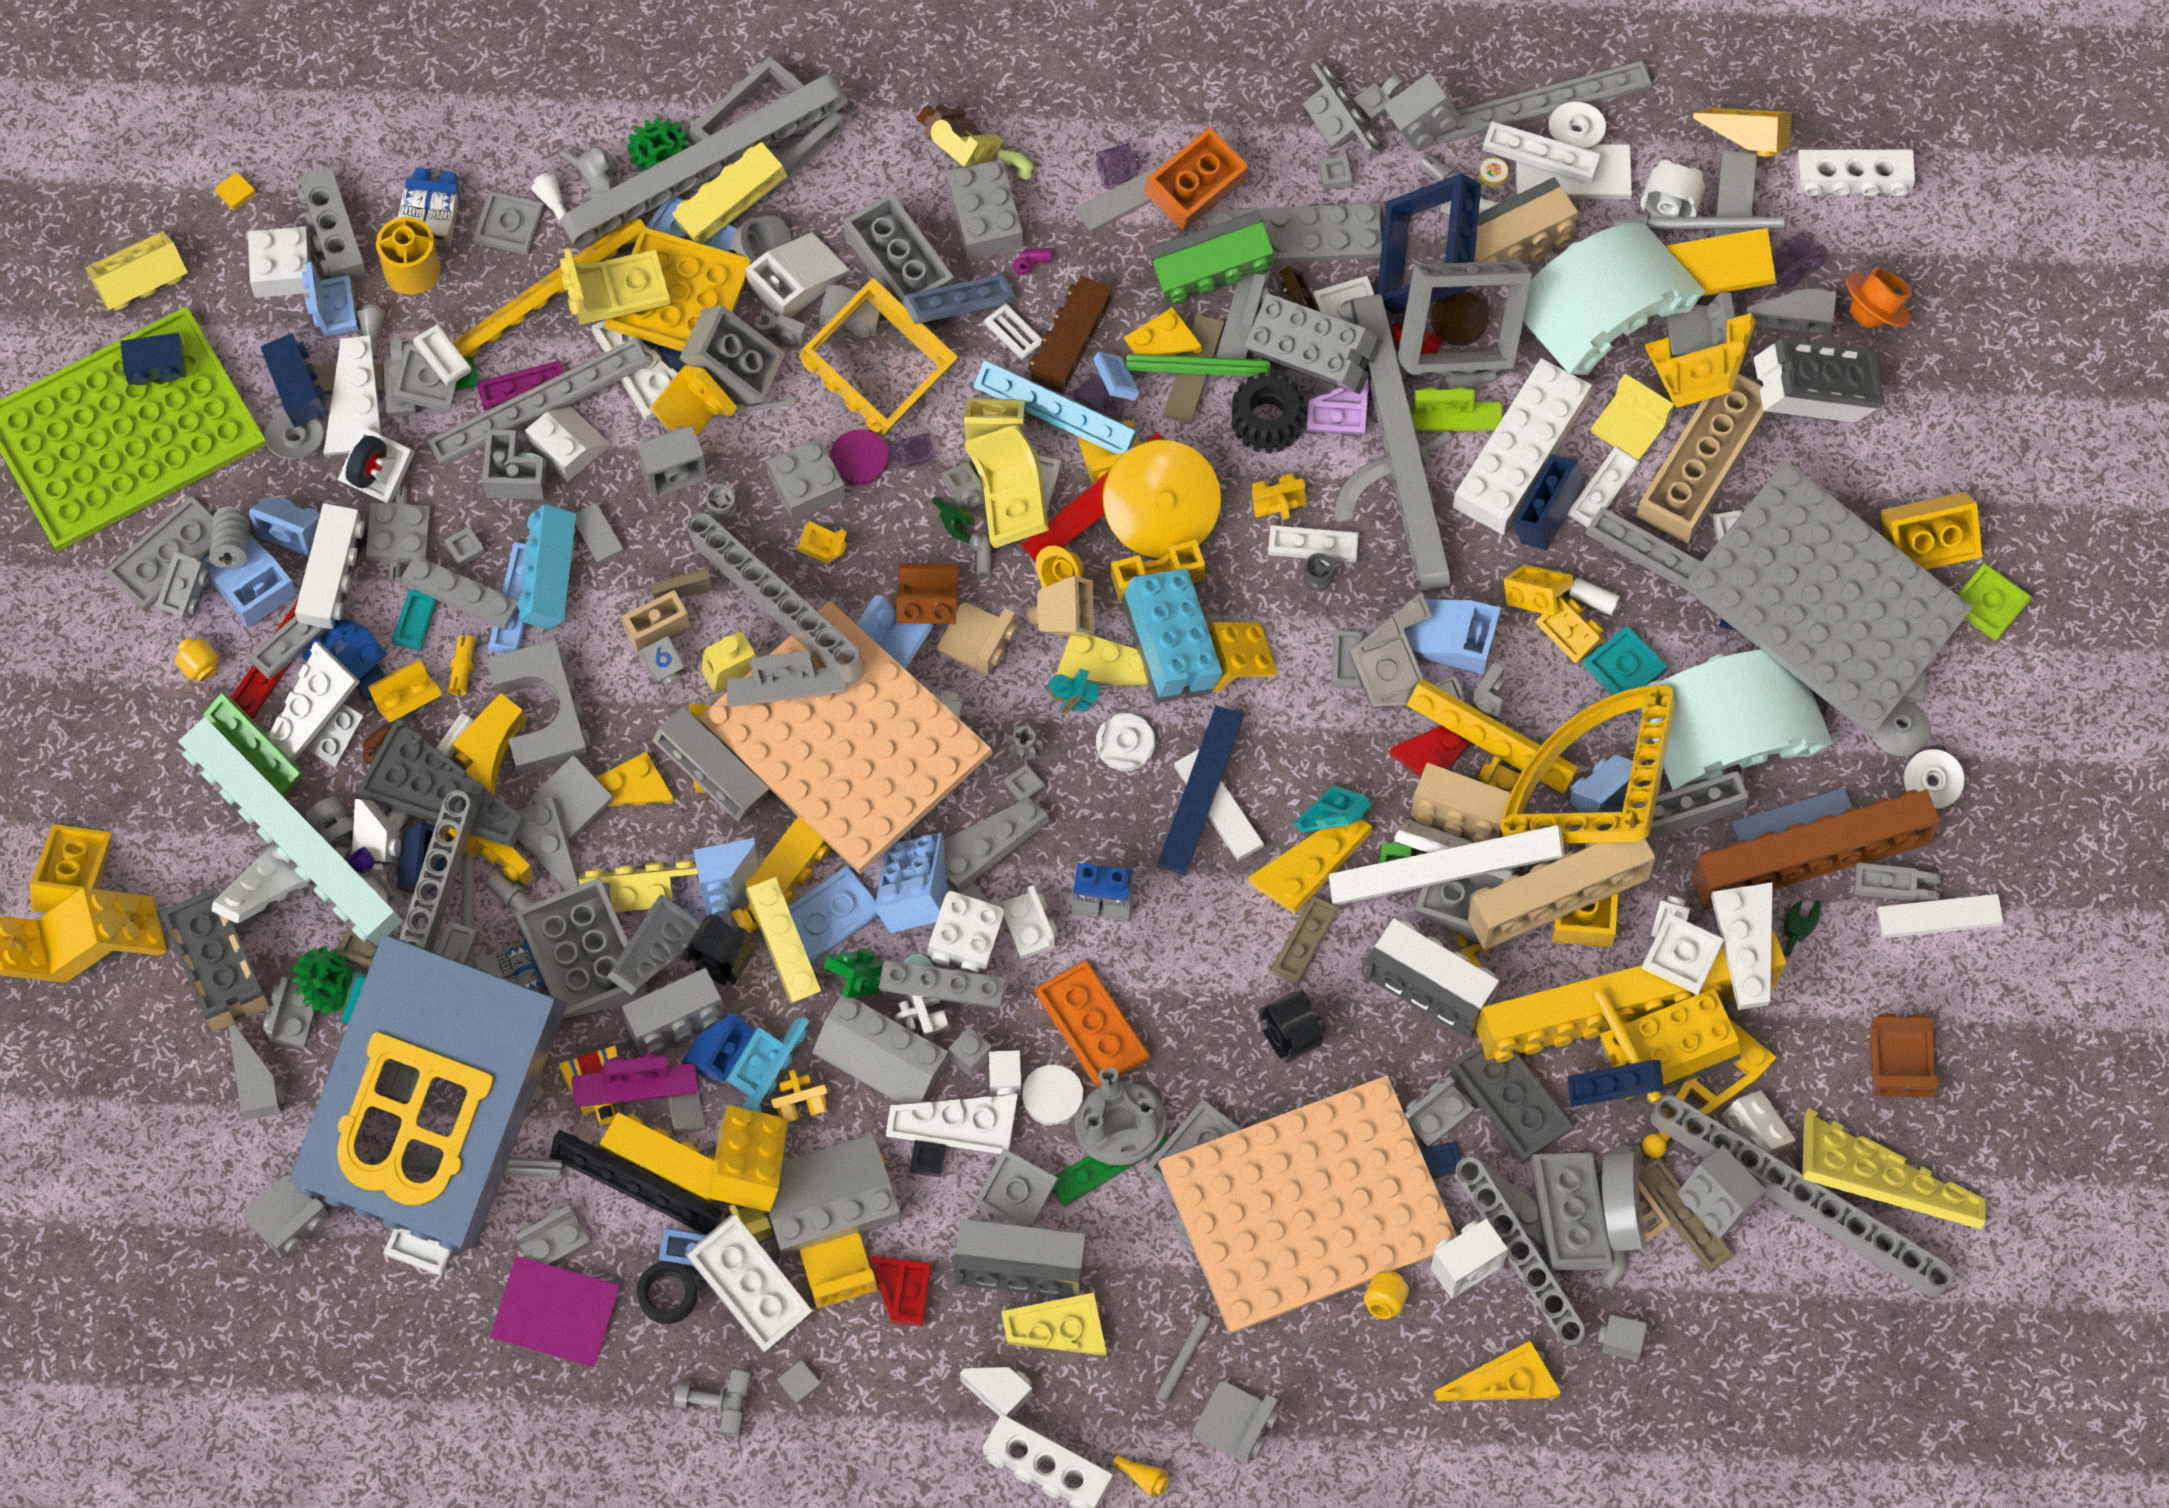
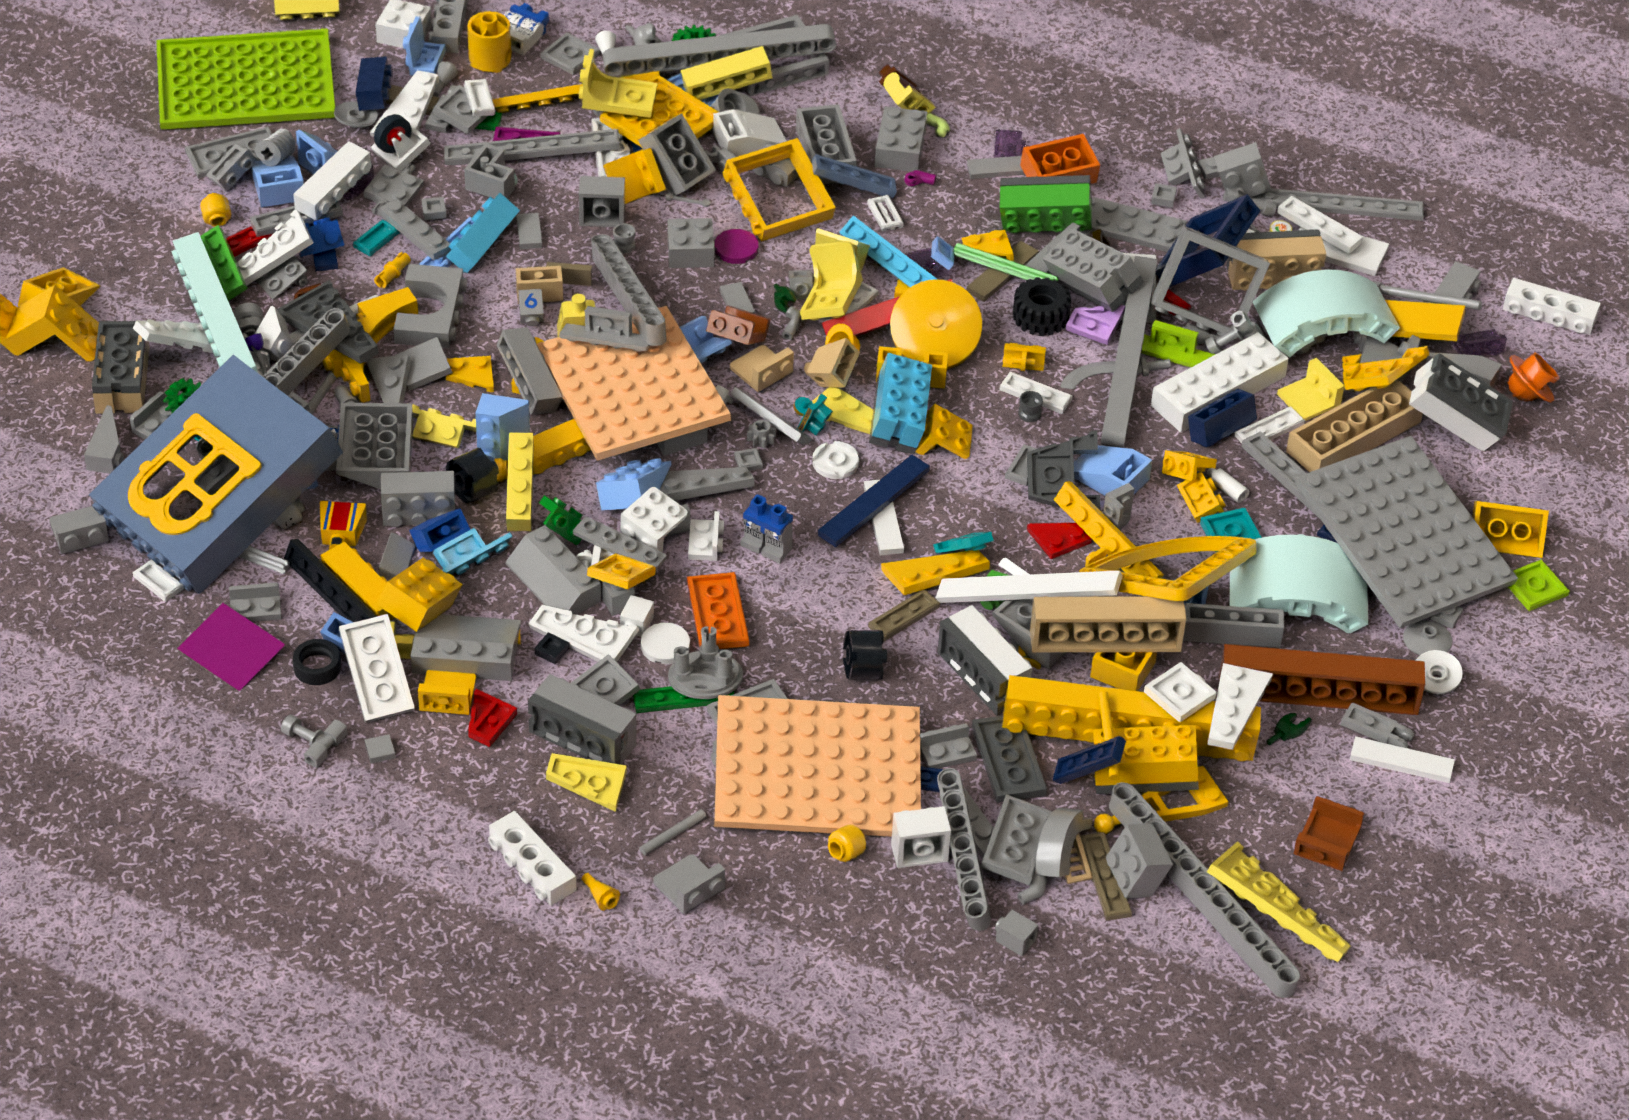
camera: 20 degrees right, 20 degrees down
(153, 359) = (287, 43): dark blue brick -> none
(403, 691) = (343, 267): yellow bracket -> none
(565, 441) = (536, 173): white slope -> none
(634, 1081) = (366, 521): magenta bracket -> none
(653, 945) = (423, 452): light grey wing -> none
(786, 1104) = (480, 577): yellow hips -> none
(822, 543) = (681, 281): yellow bracket -> none
(832, 913) = (571, 485): light blue tile -> none
(899, 542) = (736, 296): none -> light grey tile
(912, 450) = (774, 253): clear purple bracket -> none
(966, 1028) = (621, 571): none -> yellow tile
(998, 1388) = (523, 798): white slope -> none
(1022, 709) = (771, 416): none -> light grey tile
(1071, 334) = (925, 222): reddish brown brick -> none
(1459, 318) = (1212, 301): dark brown tile -> none
(1459, 804) = (1054, 553): tan brick -> none
(1464, 144) = (1267, 207): none -> light grey bar
(1510, 1376) = (916, 928): yellow wing -> none
(1519, 361) = (1241, 328): none -> light grey bar
(1581, 117) = (1356, 219): white dish -> none
(1673, 191) = (1407, 271): white brick -> none
(1751, 129) = (1489, 254): yellow slope -> none
(1758, 1123) = (1195, 834): white bracket -> none

